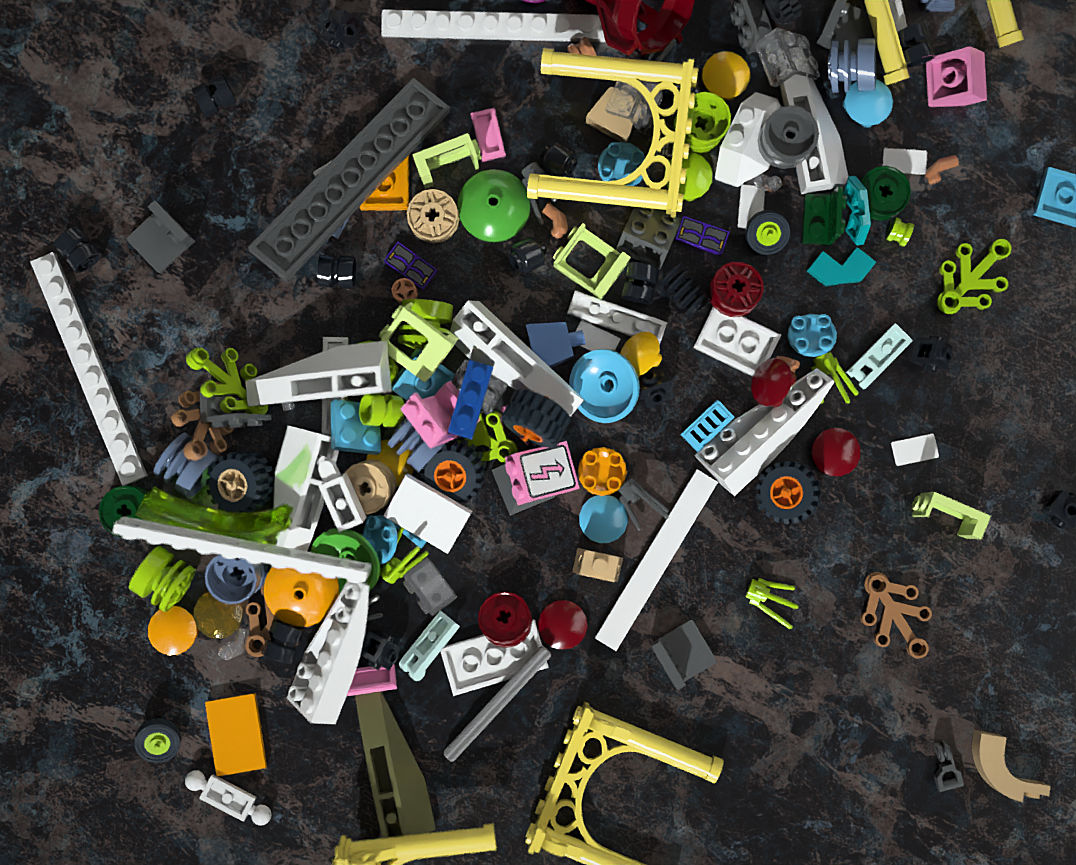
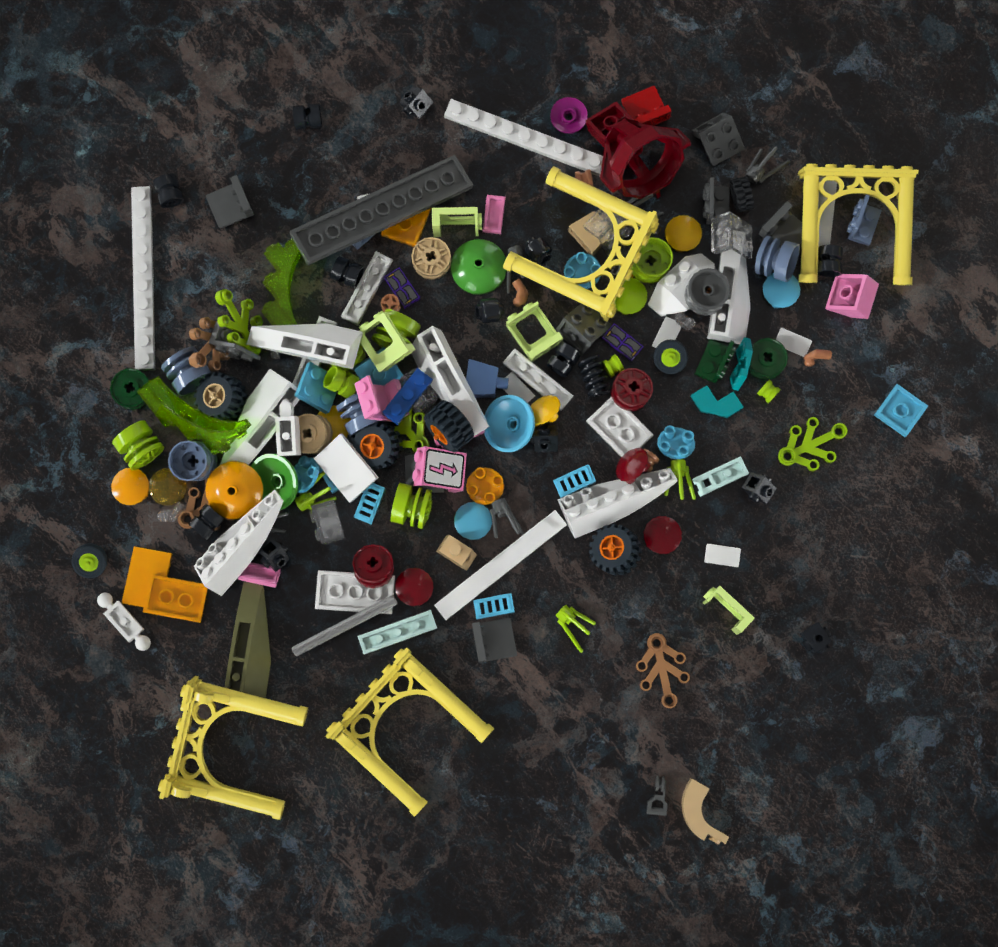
camera: 25 degrees right, 5 degrees down
(234, 547) = (210, 446): white plate -> none
(258, 316) = (279, 283): none -> clear neon green arch
(279, 747) = (175, 598): none -> light orange tile
(368, 281) = (366, 288): none -> white tile
(428, 645) = (310, 565): light aqua plate -> none
(480, 543) = (369, 520): none -> medium azure slope
(524, 530) = (411, 505): none -> lime wheel
(563, 687) = (397, 632): none -> light aqua plate
(689, 609) = (508, 597): none -> medium azure slope
(702, 268) = (612, 365): none -> lime wheel

